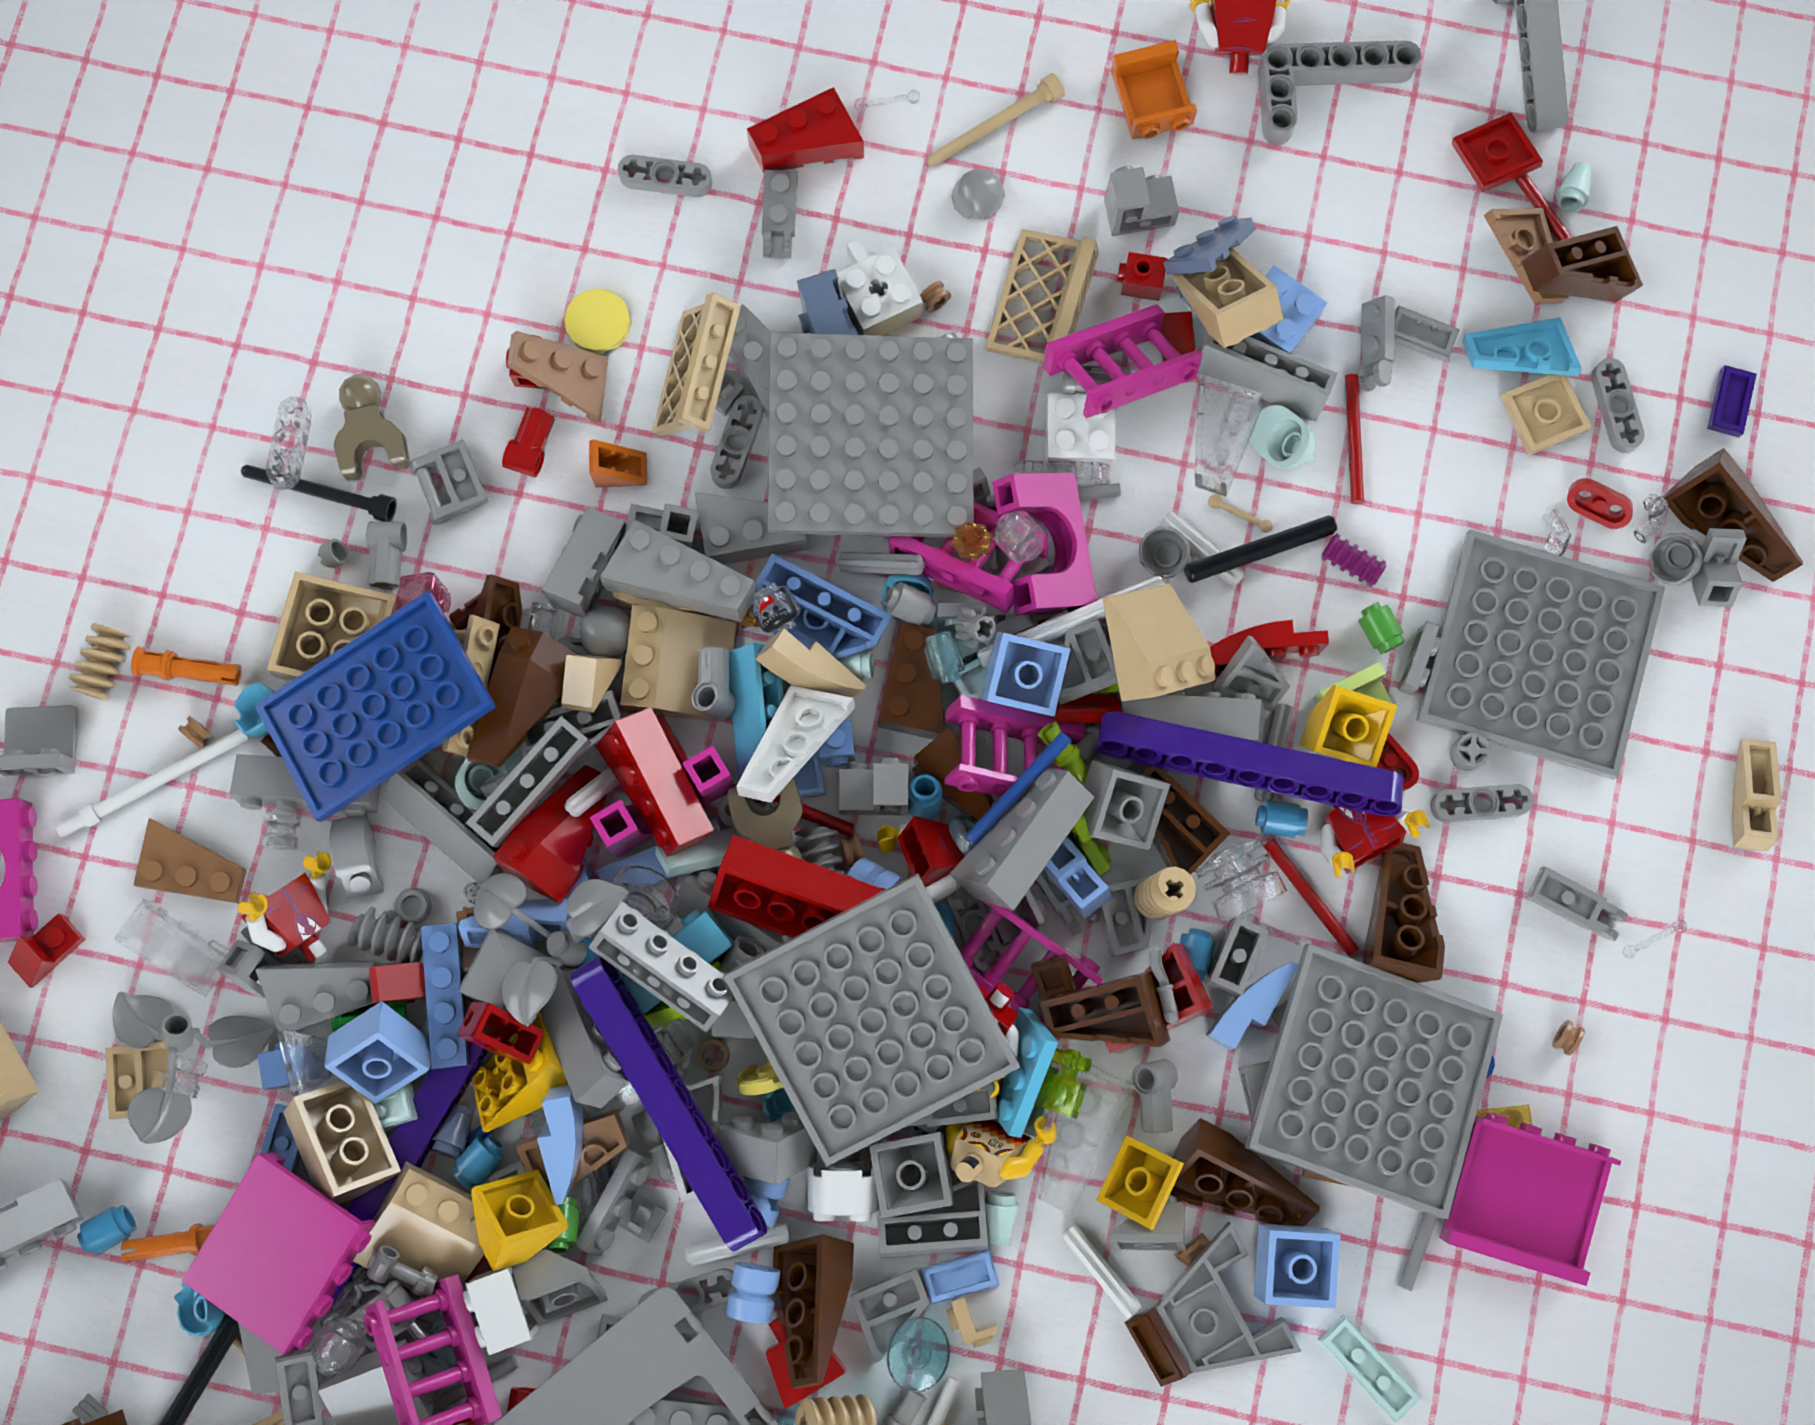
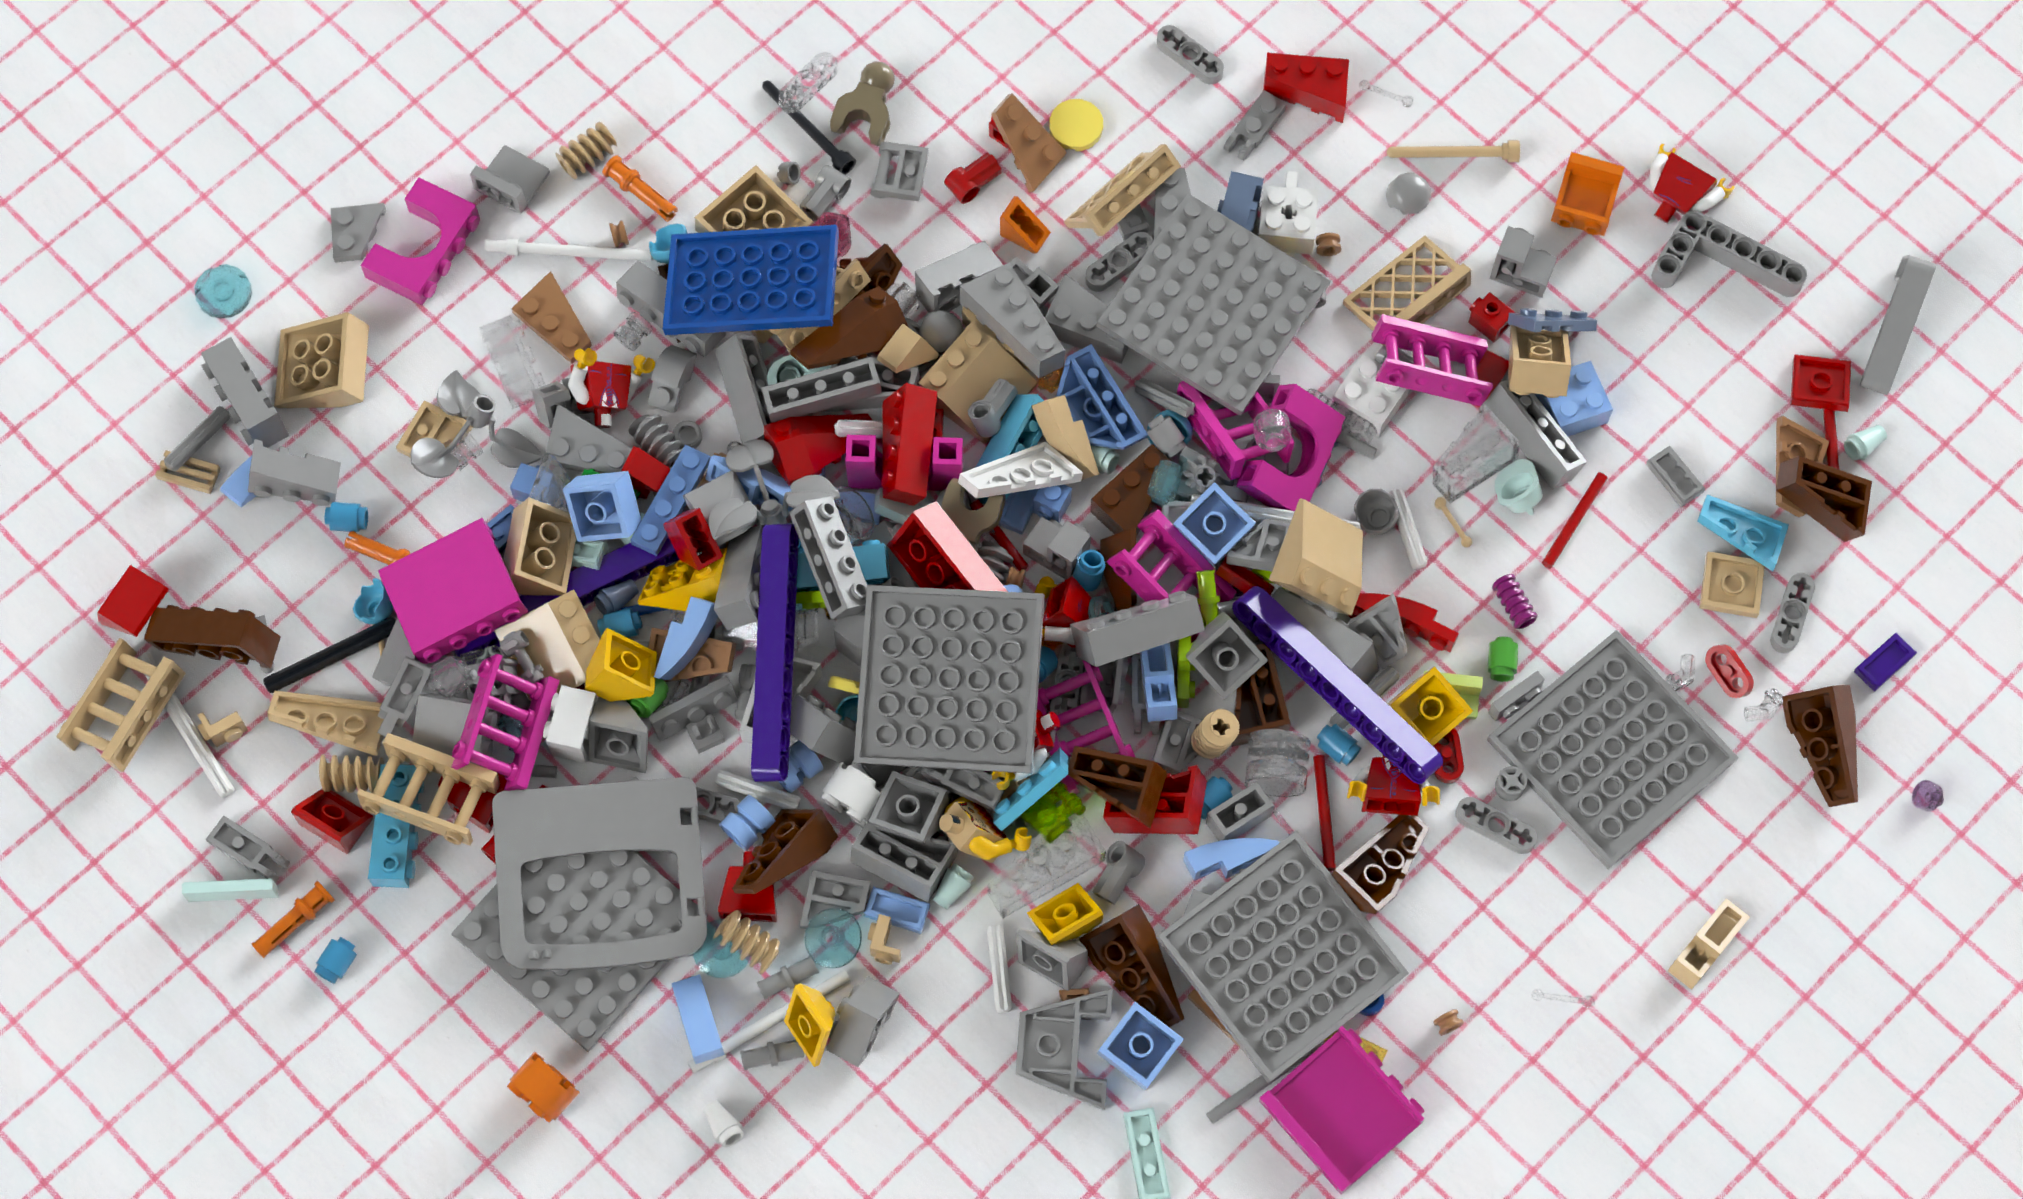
camera: 35 degrees right, 10 degrees down
(40, 954) = (423, 316): red slope -> none
(708, 1045) = (826, 648): medium nougat bush -> none
(775, 608) = (1068, 379): head -> none
(972, 540) = (1236, 414): clear orange piece -> none
(1018, 788) = (1155, 593): blue bar -> none
(1053, 976) = (1098, 738): reddish brown tile -> none
(1157, 1347) = (1004, 1041): reddish brown tile -> none
(1165, 990) = (1169, 790): light grey piece -> none
(1260, 549) = (1449, 551): black axle -> none
(1377, 342) = (1635, 462): light grey hinge -> none
(1574, 902) = (1518, 934): light grey hinge -> none
(1675, 558) = (1760, 742): light grey hair -> none
(1719, 577) = (1788, 766): light grey brick -> none

